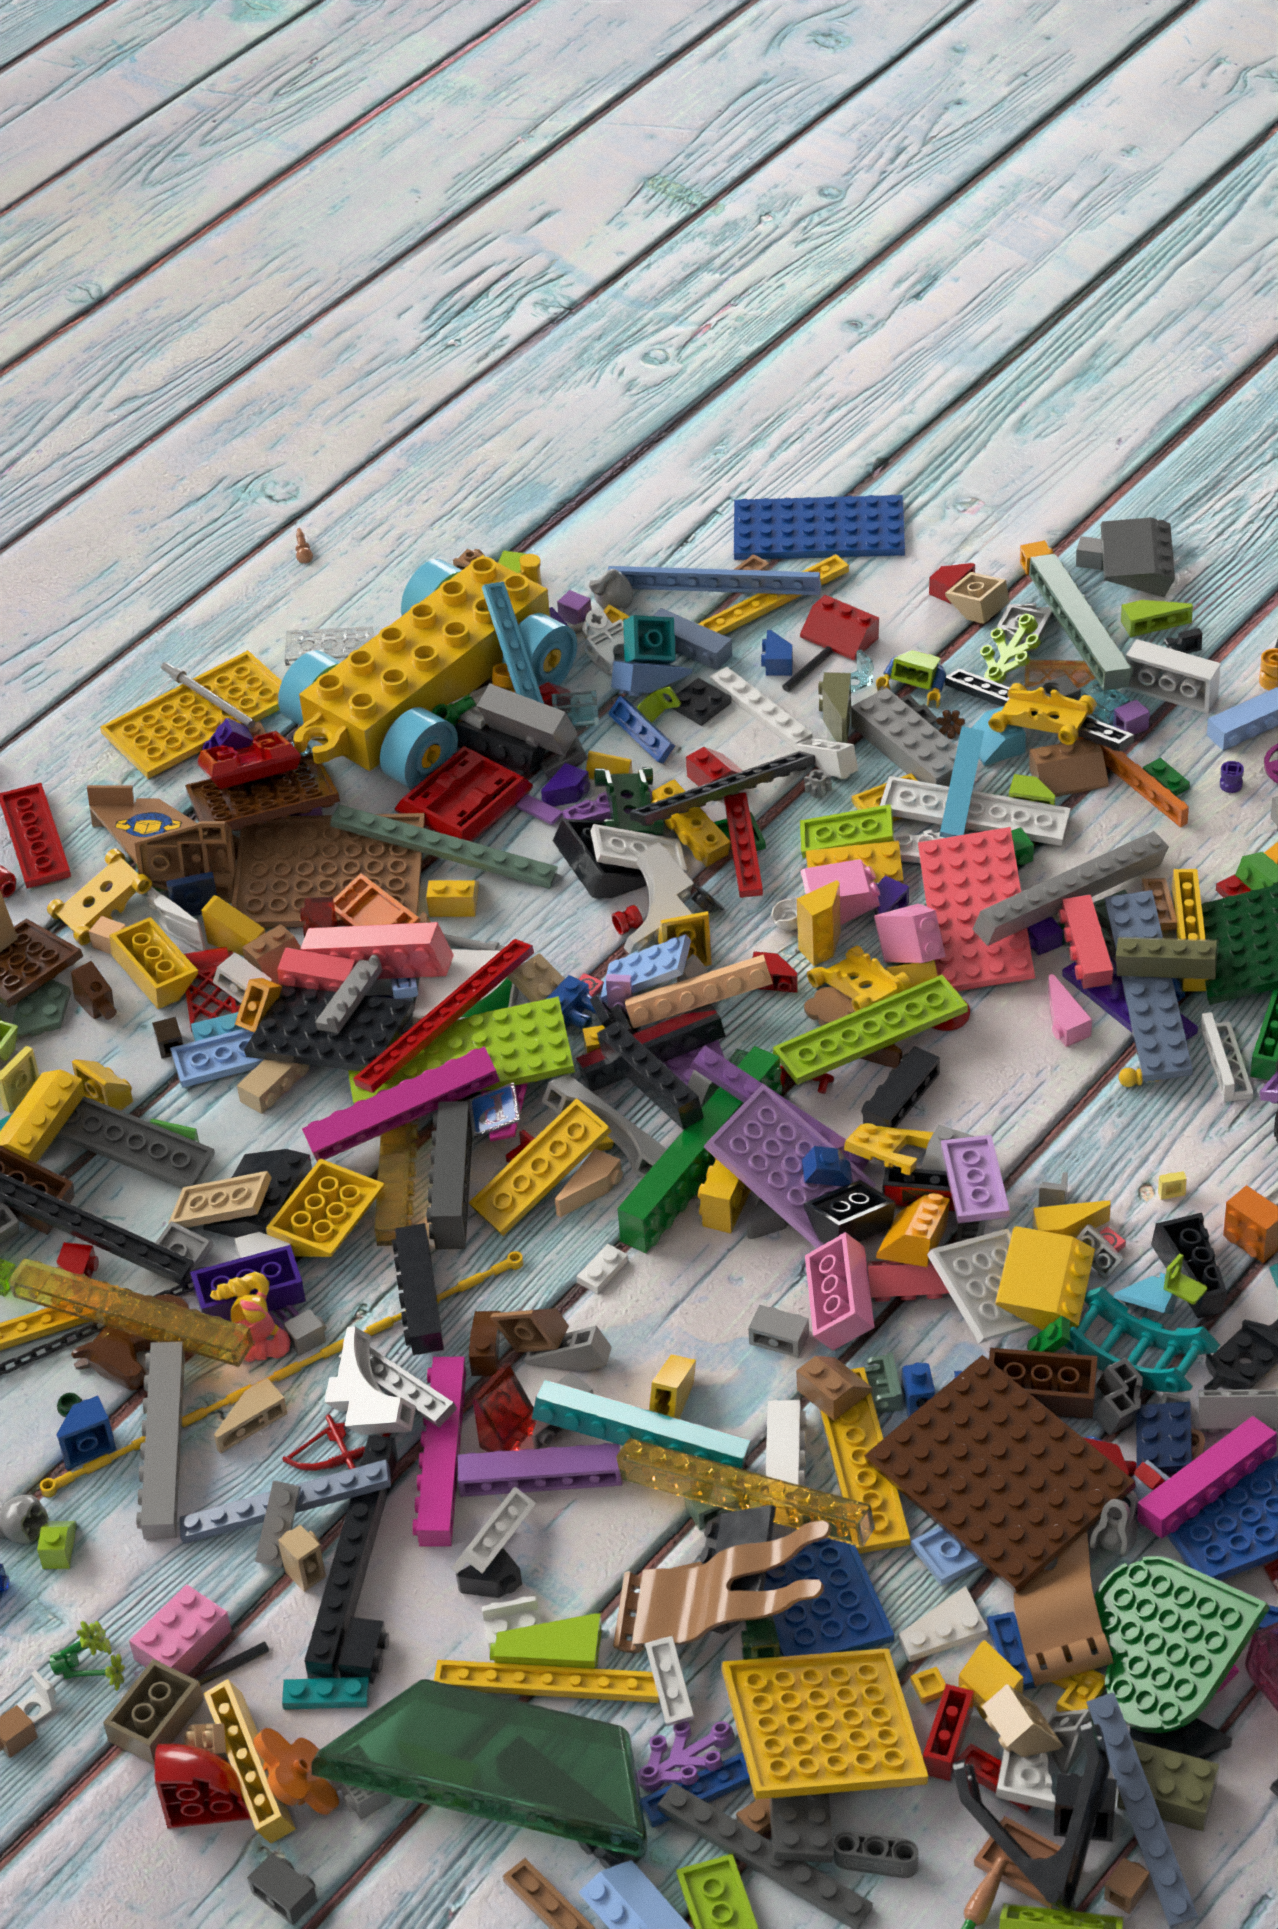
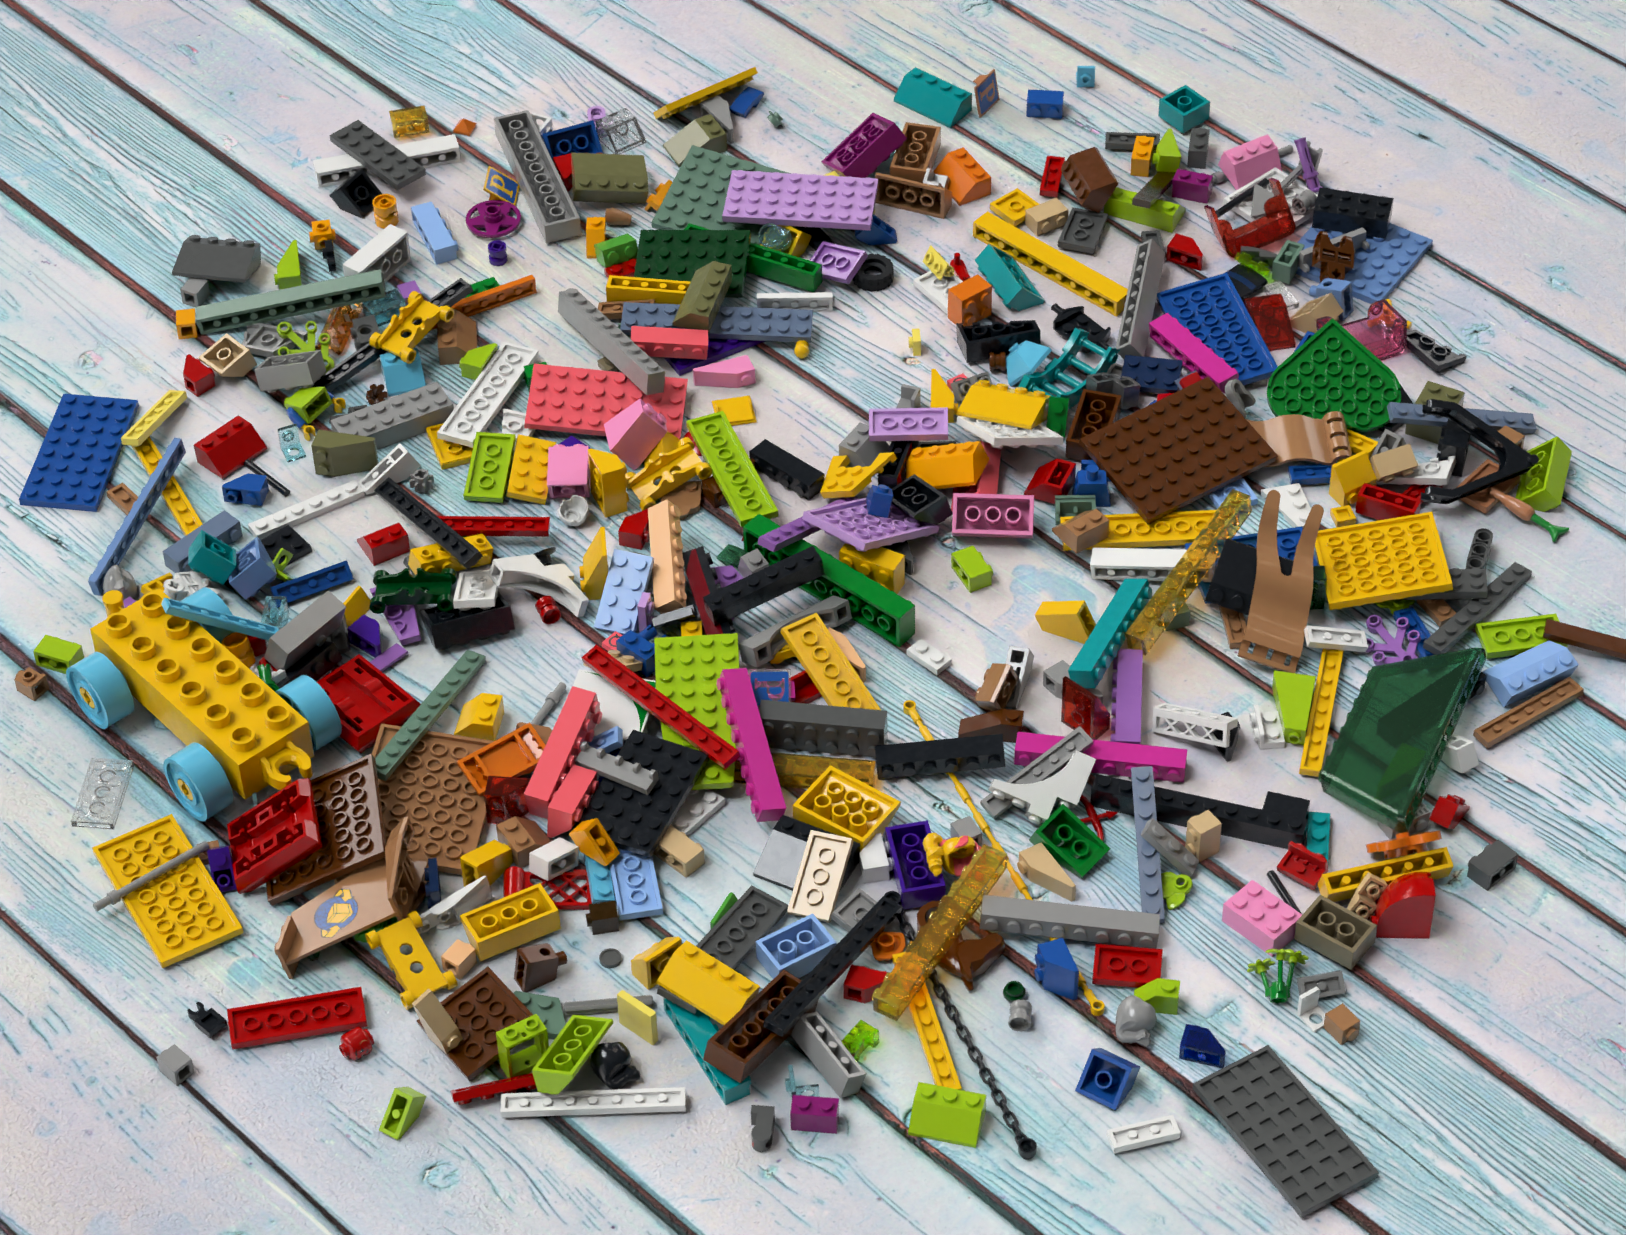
camera: 85 degrees left, 0 degrees up
(30, 1411) = (1020, 1015): none -> light grey wheel
(32, 774) = (207, 1021): none -> black plate
(50, 1048) = (600, 1005): none -> light grey axle
(75, 1706) = (1328, 983): none -> light grey plate
(106, 1508) = (1126, 965): none -> red plate
(117, 1195) = (795, 947): none -> light blue brick
(121, 1056) = (610, 958): none -> dark grey piece
(138, 1280) = (887, 944): none -> orange animal
(234, 1545) = (1175, 893): none -> lime plate
(268, 1673) = (1303, 865): none -> red bracket
(293, 1428) = (1070, 841): none -> green slope
(325, 1086) = (697, 809): none -> white plate
(375, 1835) = (1449, 811): none -> red slope
(478, 1838) = (1460, 754): none -> white slope
(755, 1286) = (971, 568): none -> lime brick
(778, 1331) = (1015, 559): light grey brick -> none
(870, 562) = (153, 418): none -> light yellow plate
(928, 1348) = (1052, 480): none -> red slope
(959, 641) = (290, 371): none -> light grey brick
(961, 782) = (467, 388): medium azure tile -> none
(1007, 1032) = (737, 410): none -> yellow piece
(1153, 1266) = (997, 361): none -> reddish brown wheel
(1182, 1285) = (1031, 334): lime bracket -> none
(1216, 627) = (320, 232): none -> light orange brick

